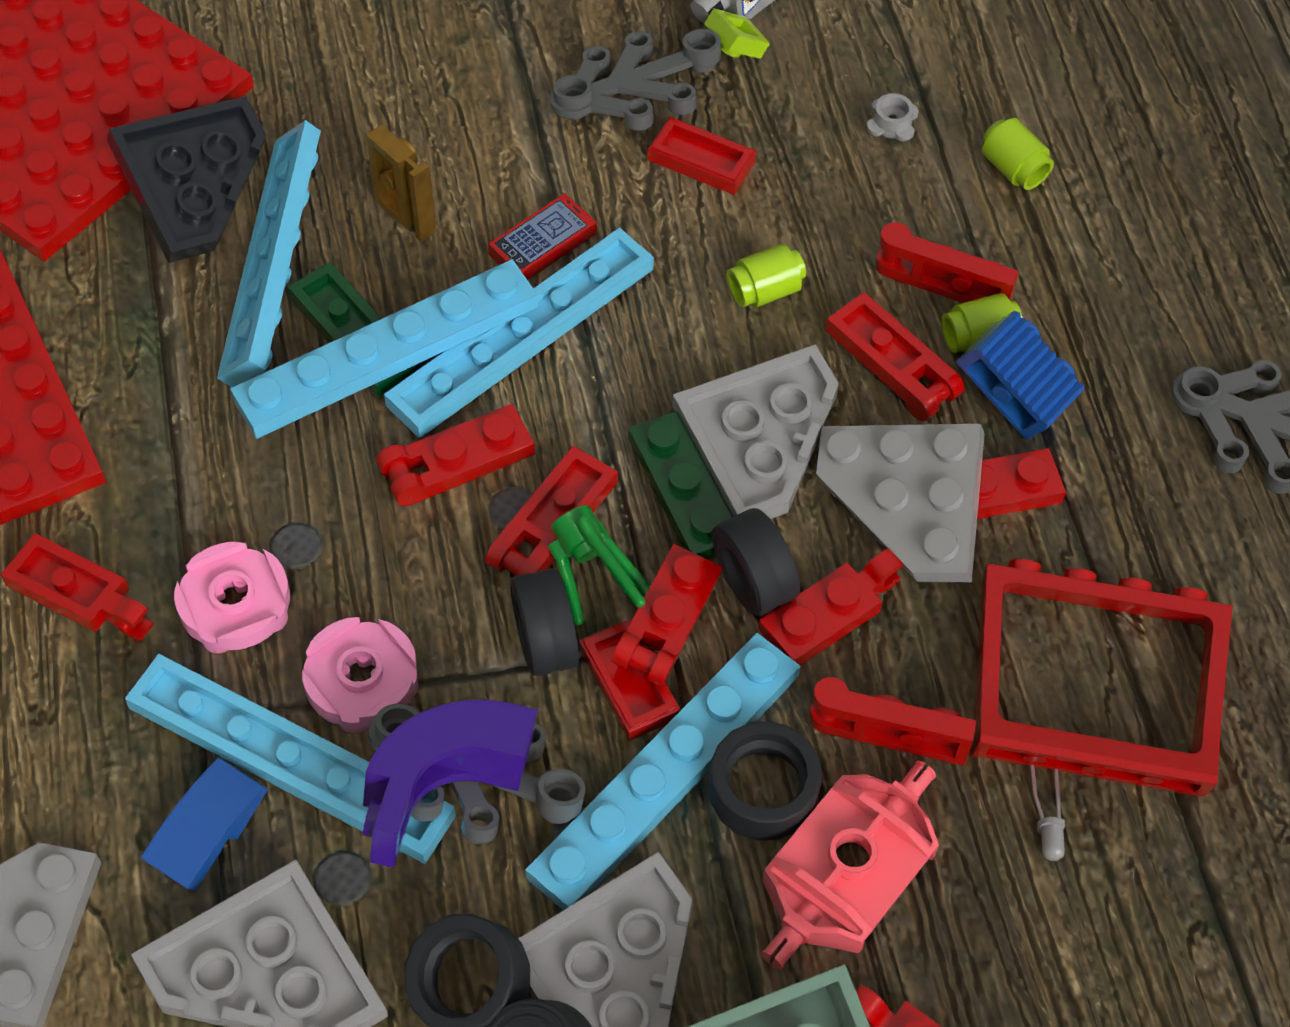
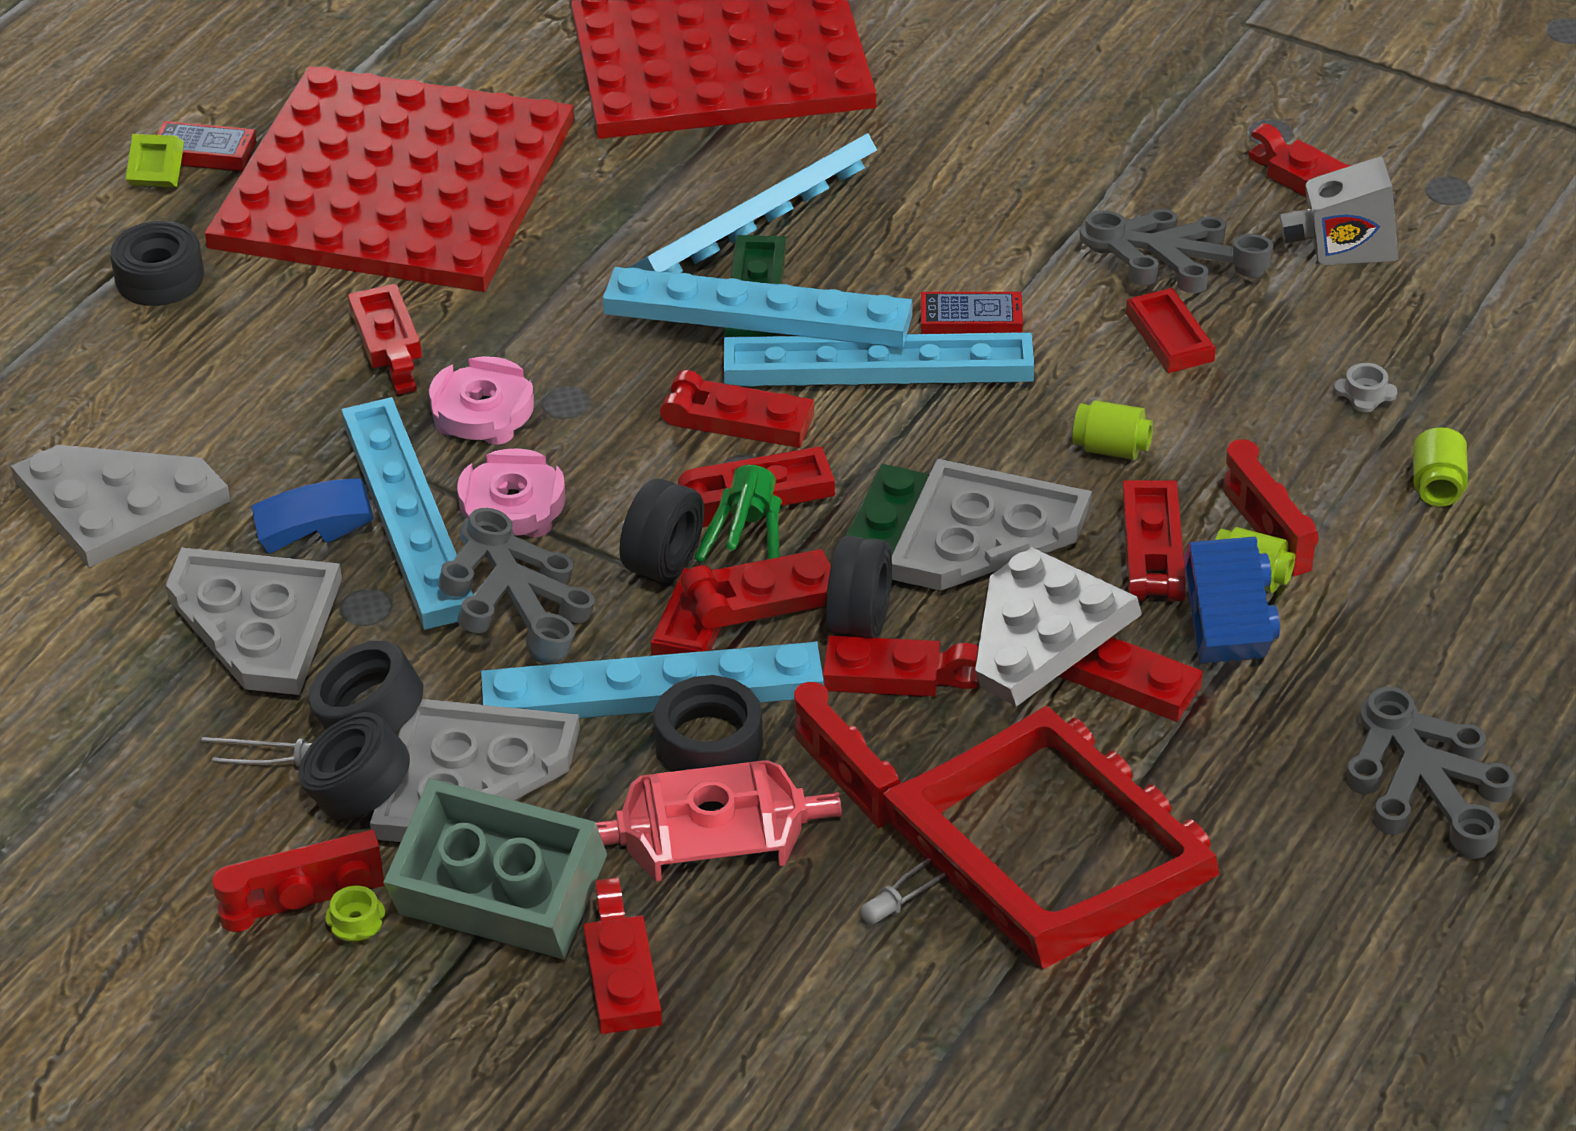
camera: 45 degrees right, 15 degrees down
(189, 171) = (756, 128): black plate -> none
(400, 183) = (892, 218): pearl gold plate -> none
(436, 747) = (478, 539): dark purple arch -> none
(737, 34) = (1298, 259): lime plate -> none

